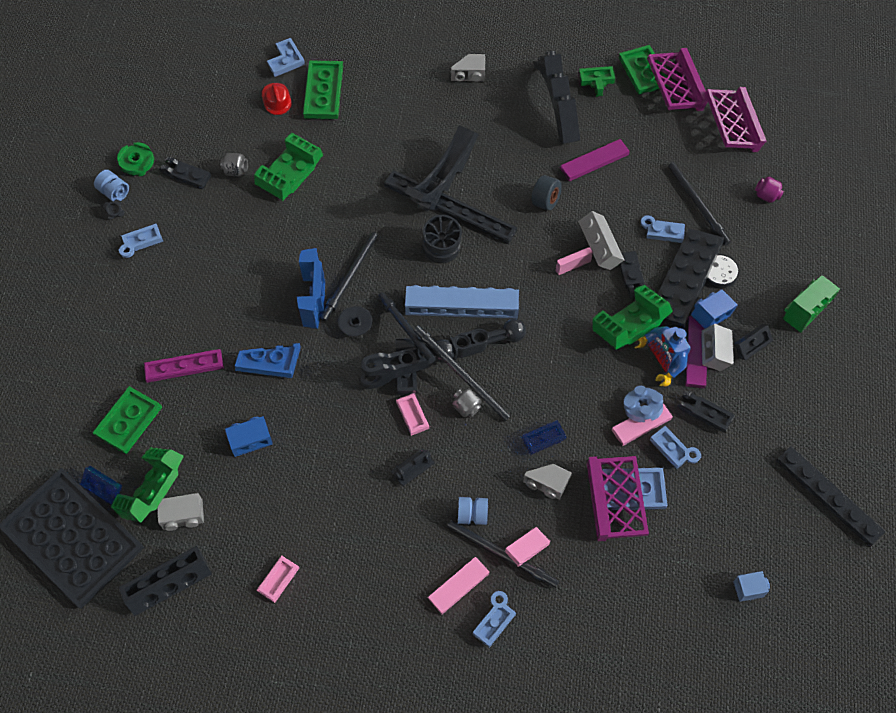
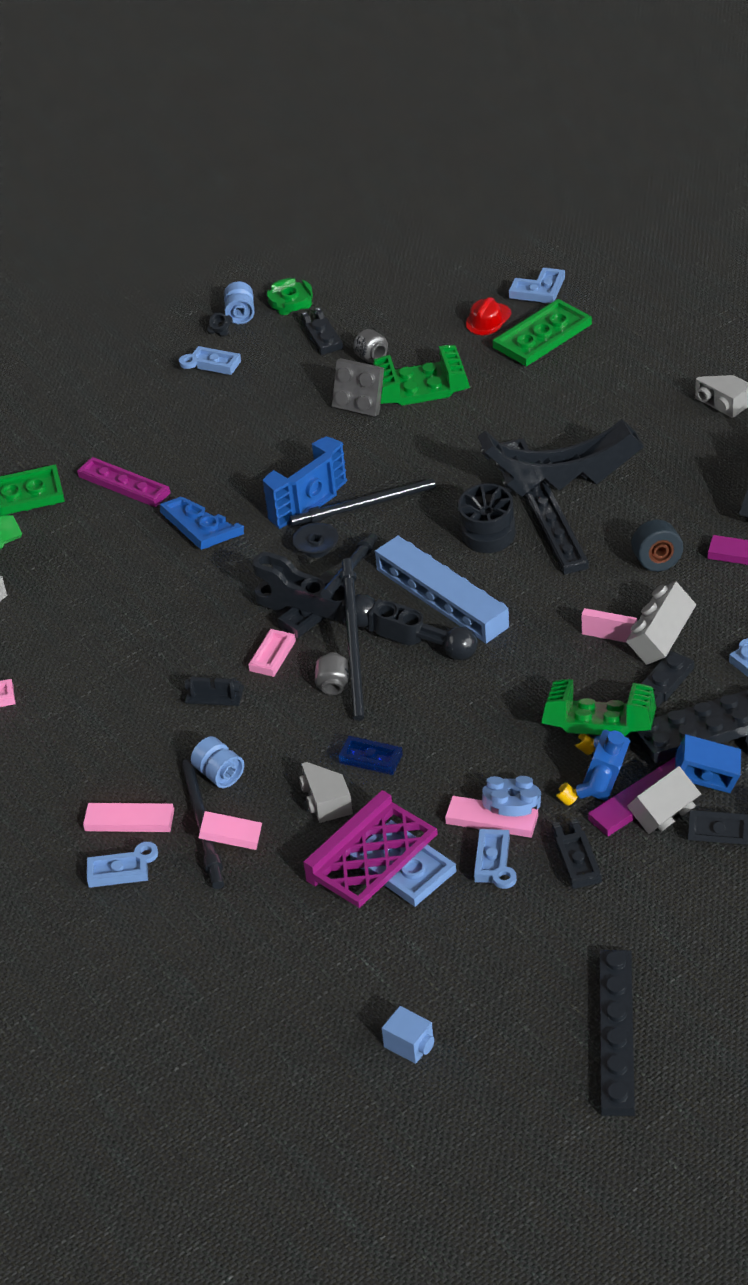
camera: 50 degrees right, 20 degrees down
(248, 436) = (102, 568): blue brick -> none
(265, 199) = (357, 387): none -> flat silver plate

